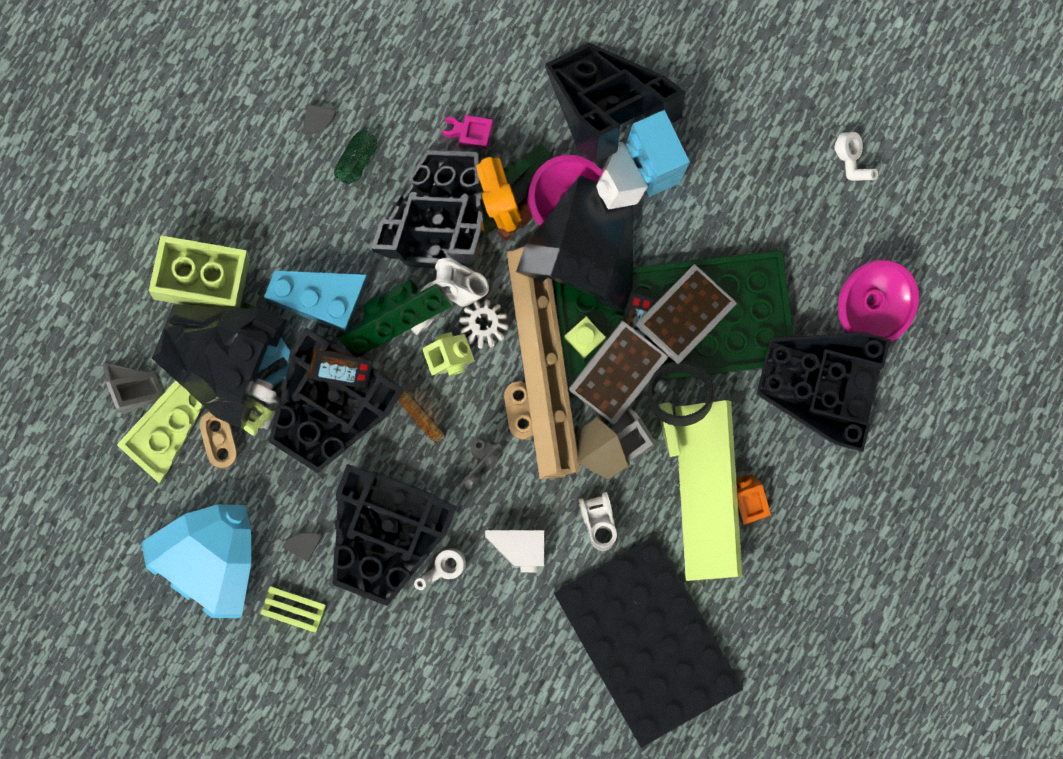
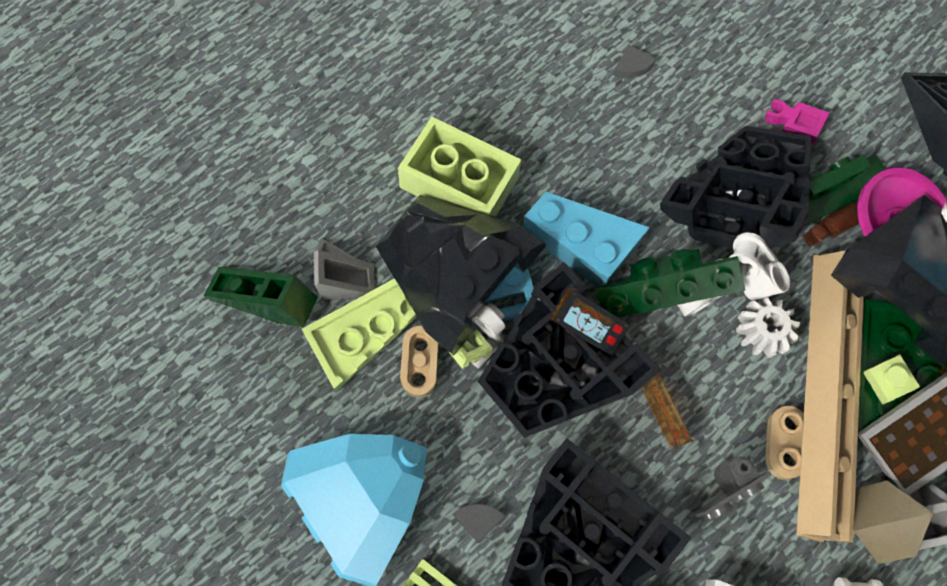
camera: 20 degrees right, 10 degrees down
(74, 427) = (263, 294): none -> dark green slope
(355, 157) = (665, 109): clear green plate -> none
(448, 354) = (720, 348): yellowish green brick -> none
(498, 194) = (833, 184): light orange piece -> none

